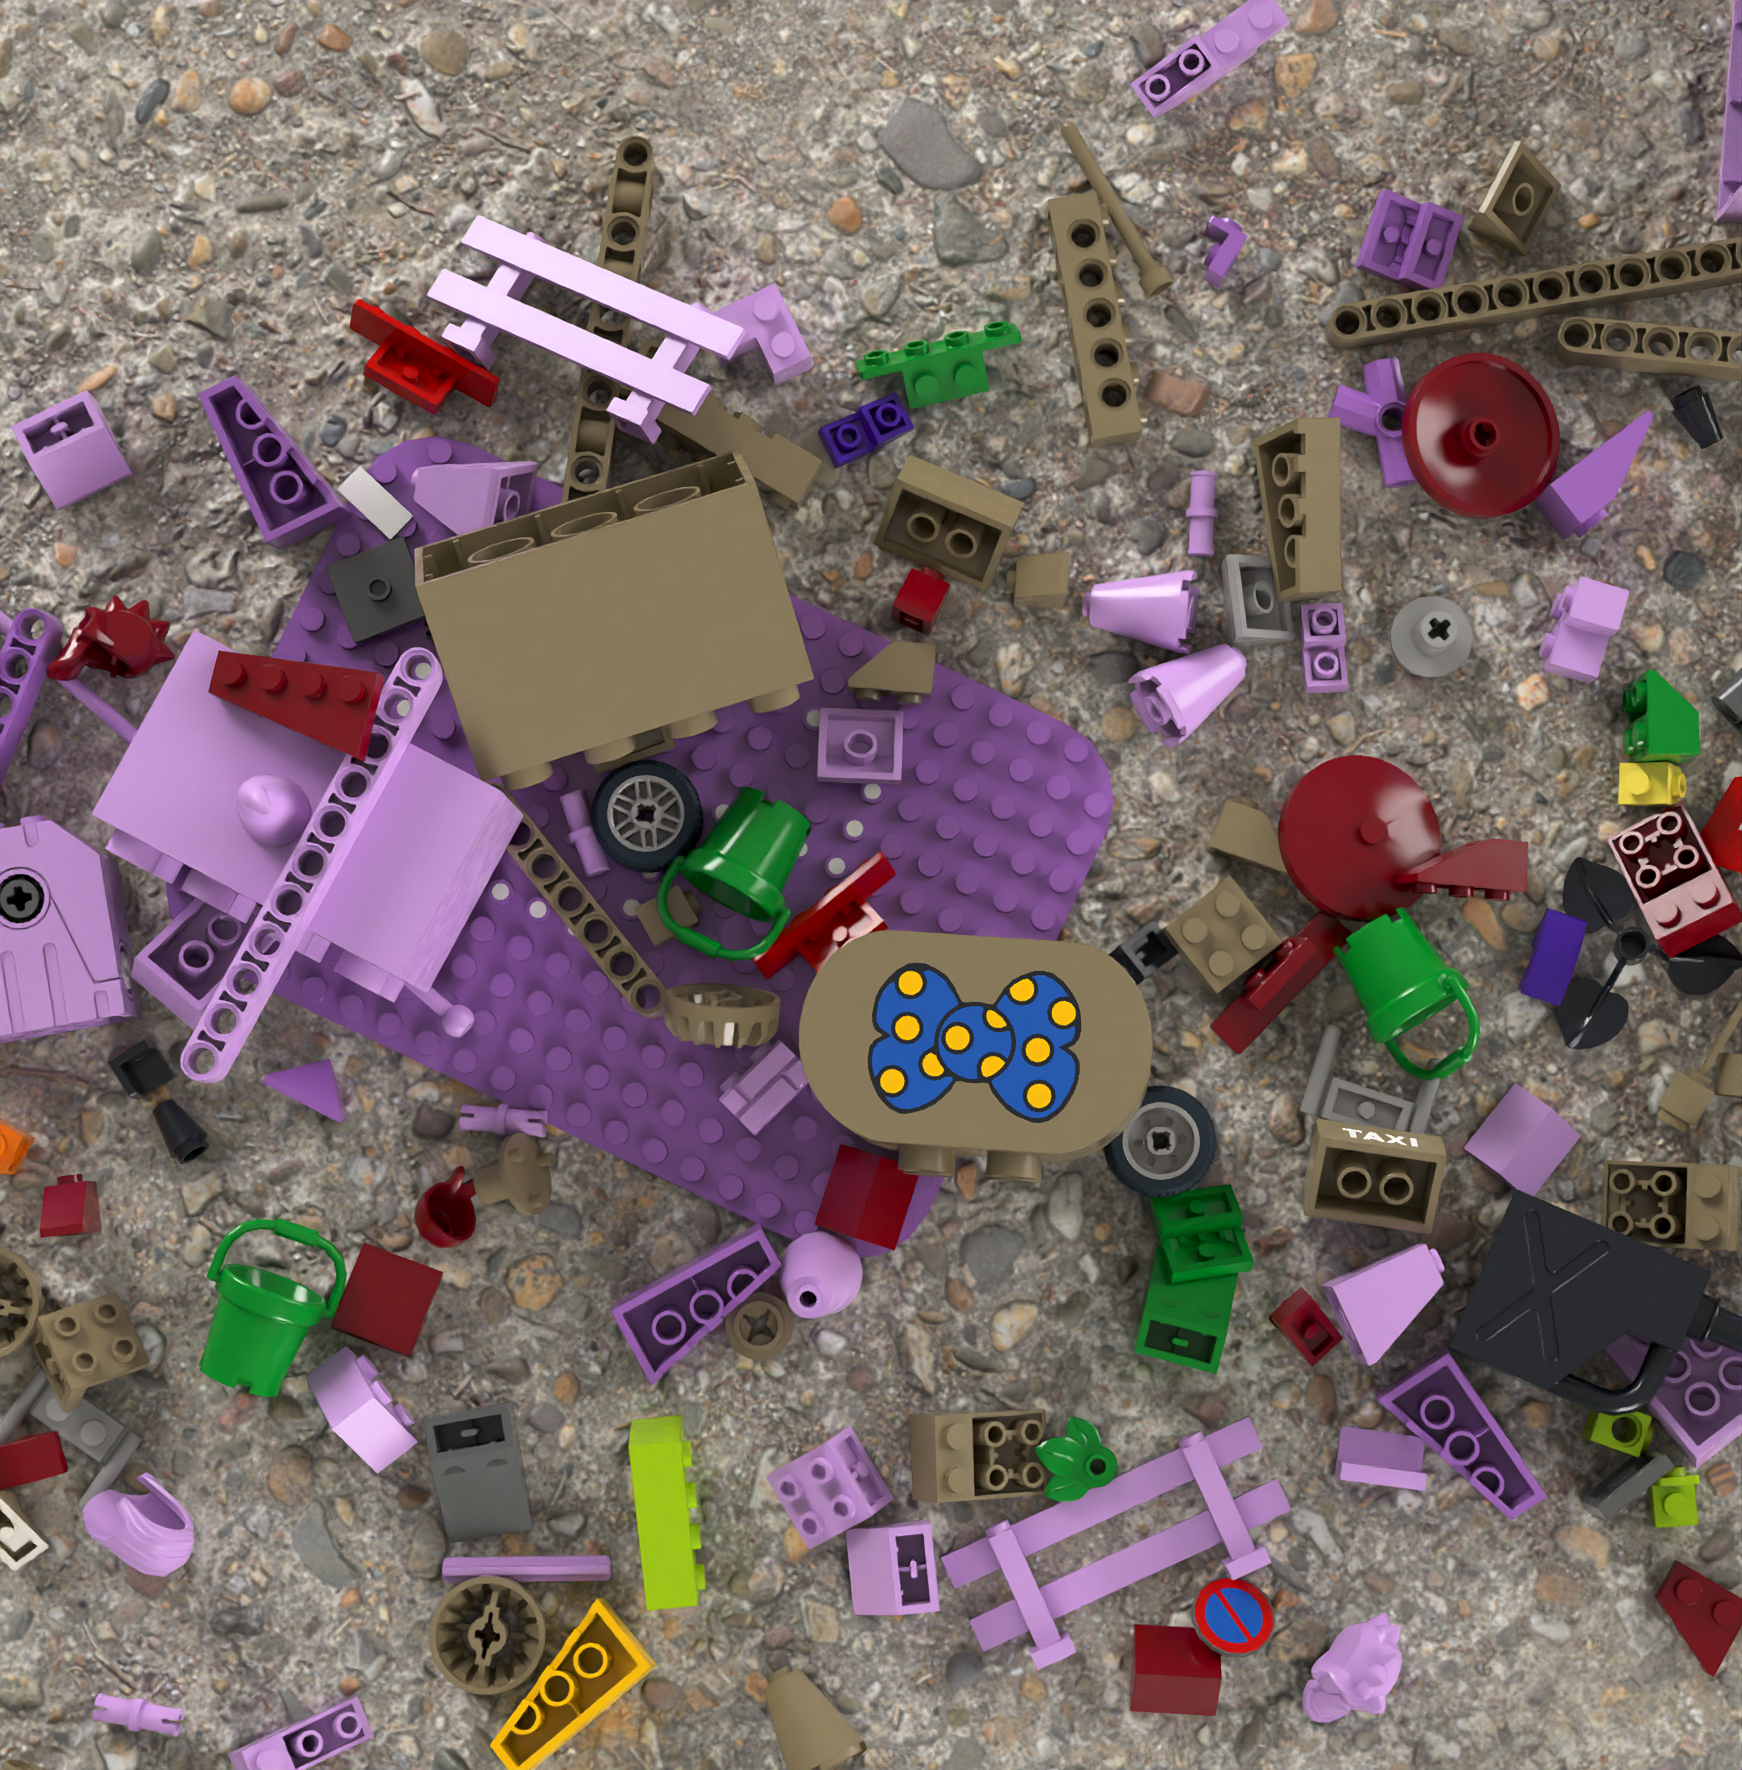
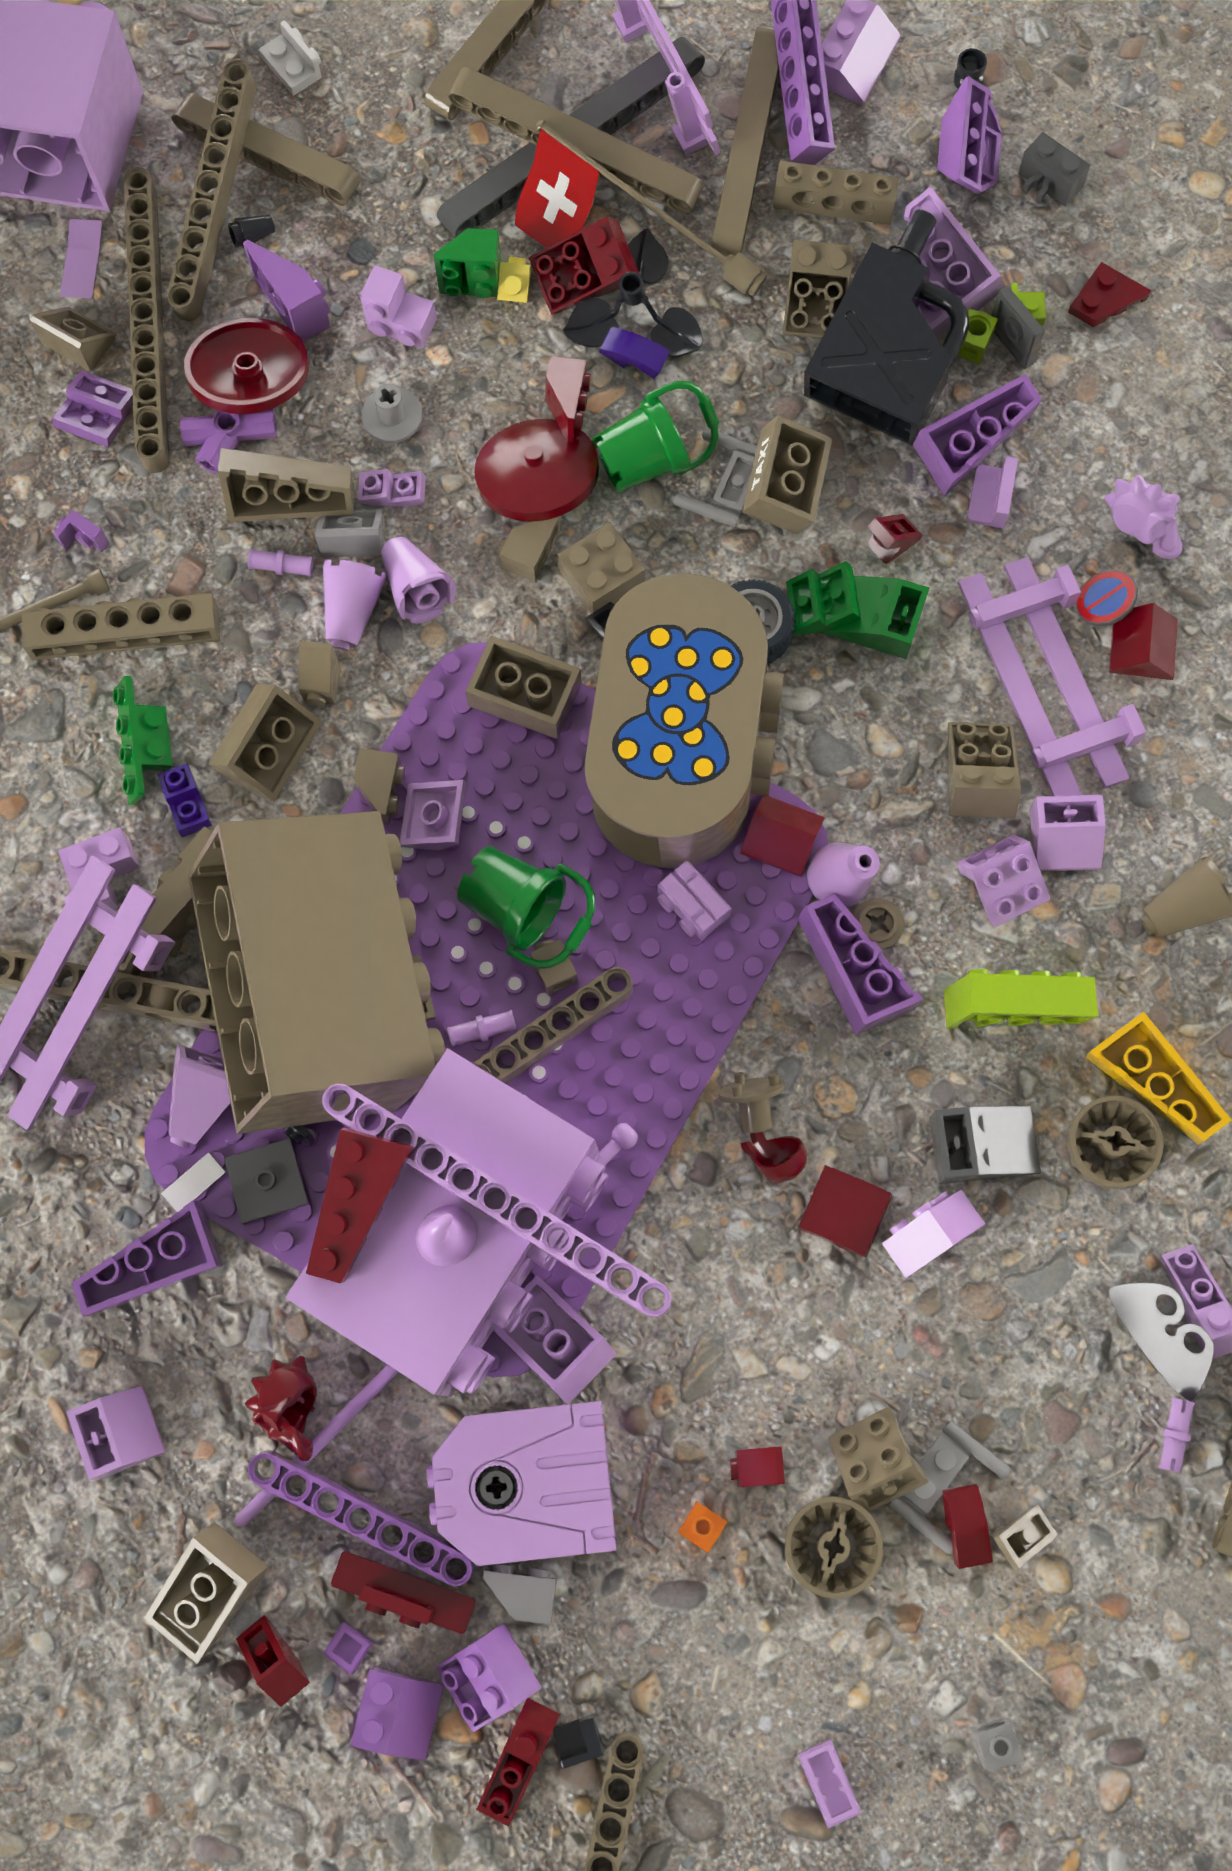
camera: 80 degrees left, 10 degrees down
(142, 1069) = (646, 1402): black panel -> none
(142, 1530) = (1025, 1419): lavender hair -> none
(180, 1132) = (699, 1374): black cone -> none
(263, 1314) = (856, 1305): green piece -> none
(283, 1667) = (1167, 1353): none -> piece
(312, 1086) = (669, 1260): medium lavender slope -> none
(416, 364) = (82, 1141): red bracket -> none
(503, 1120) = (706, 1109): lavender pin -> none
(529, 1568) = (1061, 1111): lavender axle -> none
(652, 788) = (476, 955): wheel -> none
(722, 1014) = (635, 924): dark tan gear -> none
(831, 921) = (572, 840): red bracket -> none
(920, 600) = (324, 763): dark red slope -> none
(1037, 847) = (523, 687): none -> dark tan brick
(1071, 1459) = (989, 702): green plate -> none
(1280, 981) = (637, 532): dark red bracket -> none
(1383, 1298) = (878, 474): lavender slope -> none
(1522, 1140) = (764, 385): lavender slope -> none
(1637, 193) = (81, 258): none -> lavender sticker

